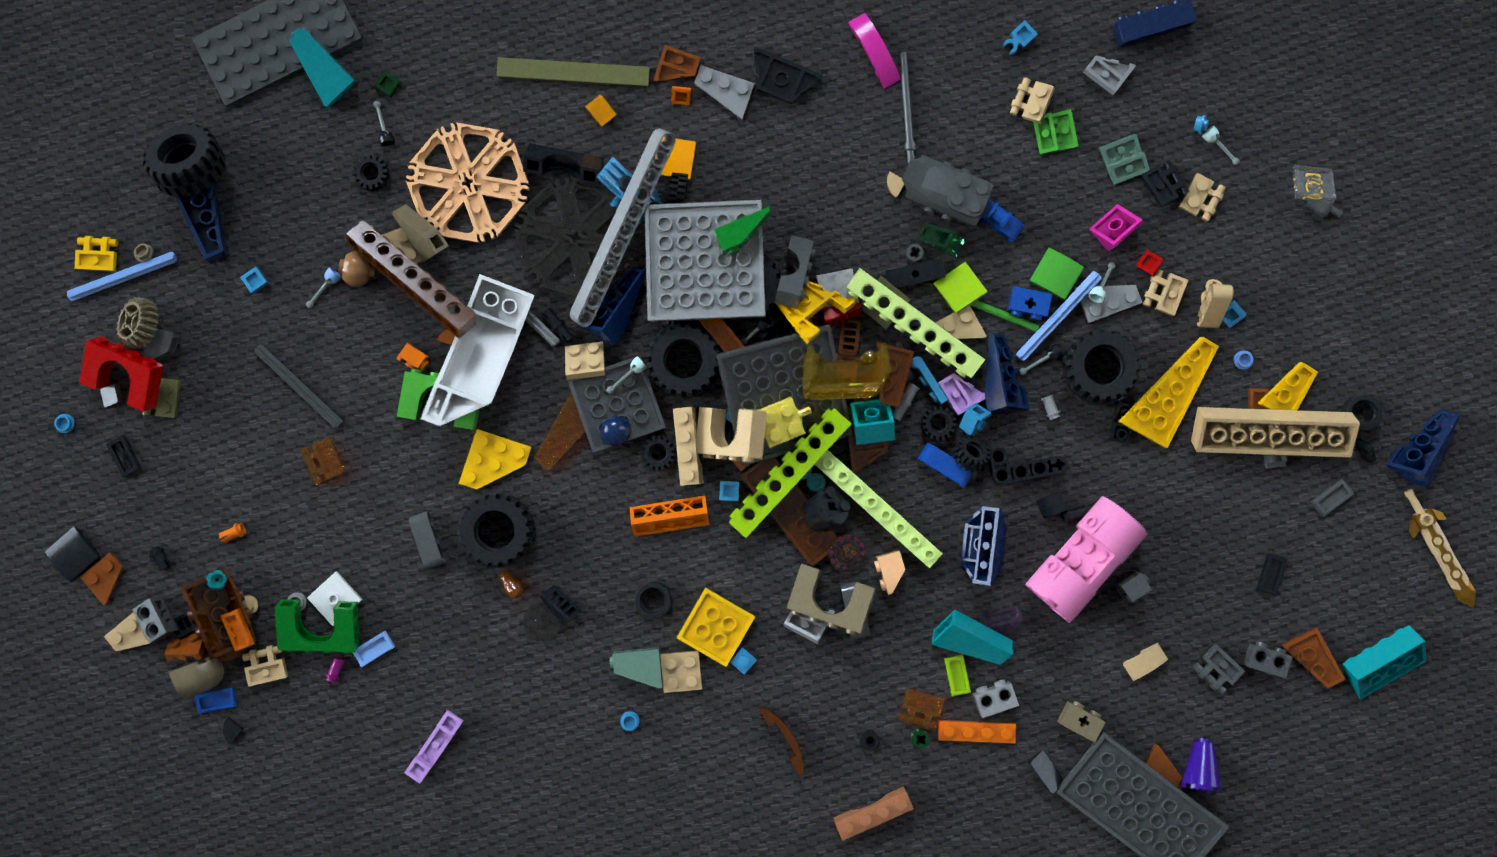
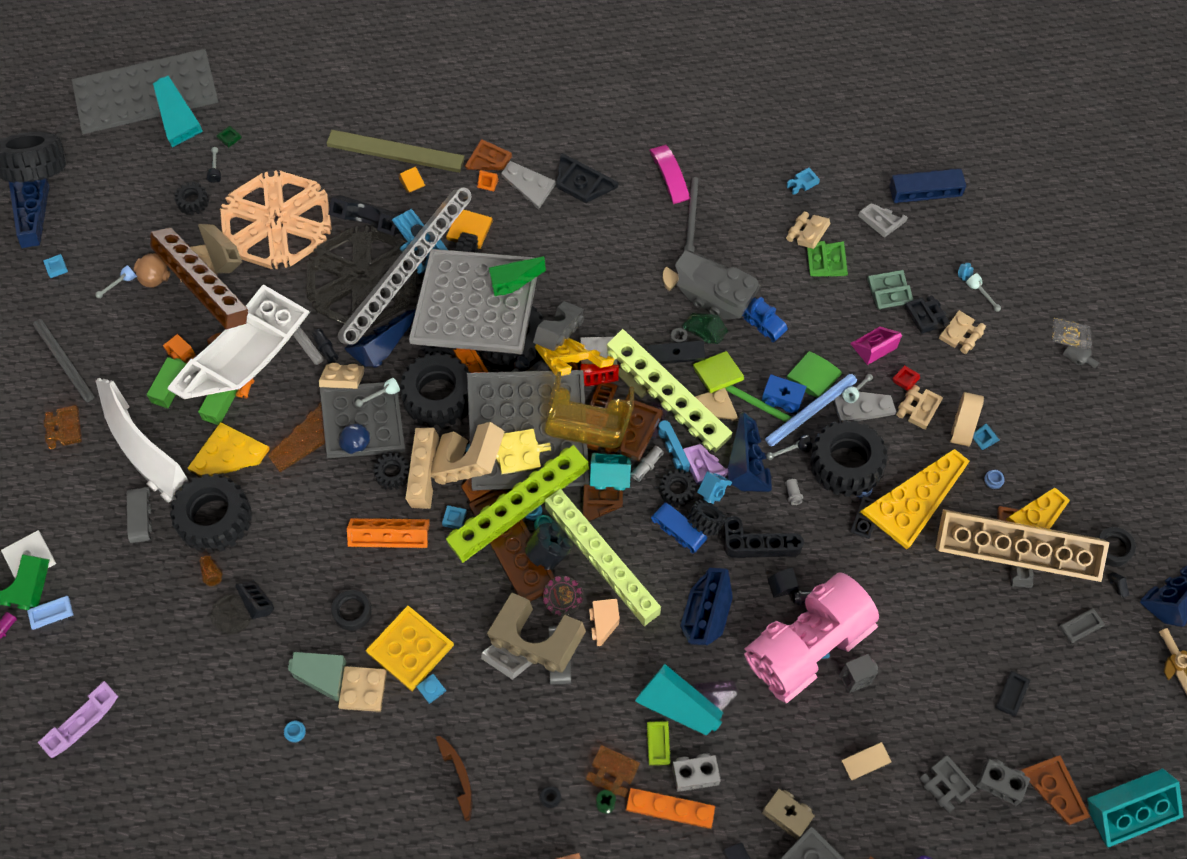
camera: 10 degrees right, 25 degrees down
(402, 472) = (147, 458): none -> white slope

